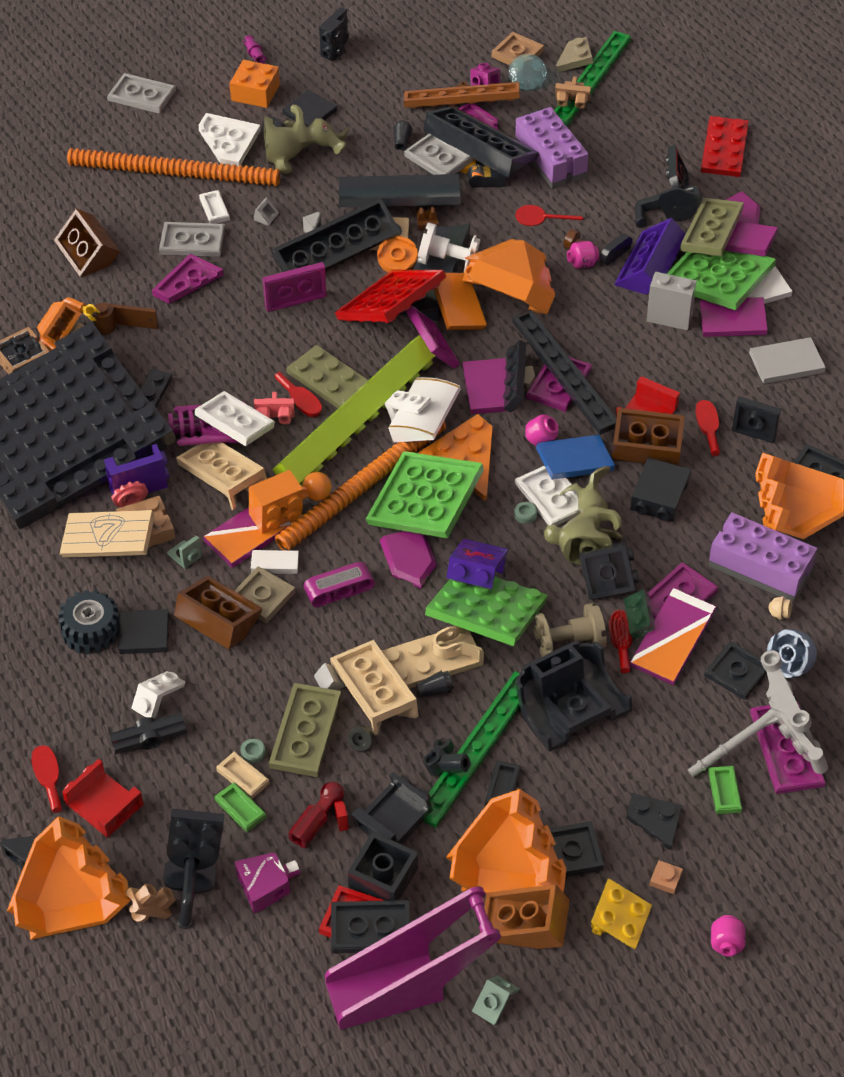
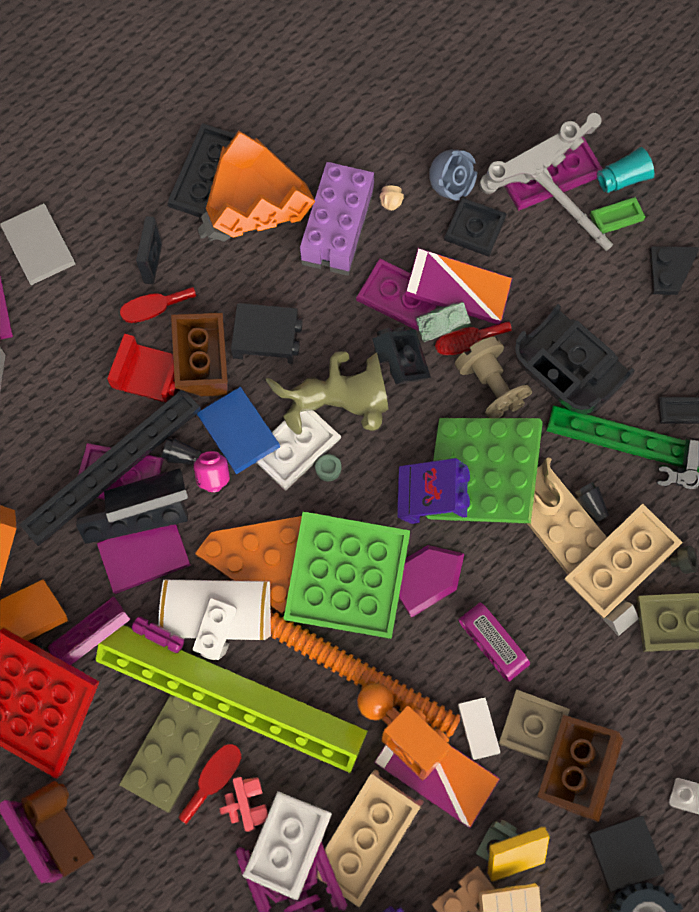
camera: 105 degrees left, 20 degrees up
(171, 549) = (517, 853): none -> yellow tile
(300, 307) = (54, 827): none -> reddish brown door
(416, 373) = (158, 634): none -> magenta axle
(530, 380) = (145, 495): none -> black tile
(567, 416) = (179, 452): none -> black cone
(770, 804) = (626, 171): none -> teal plant

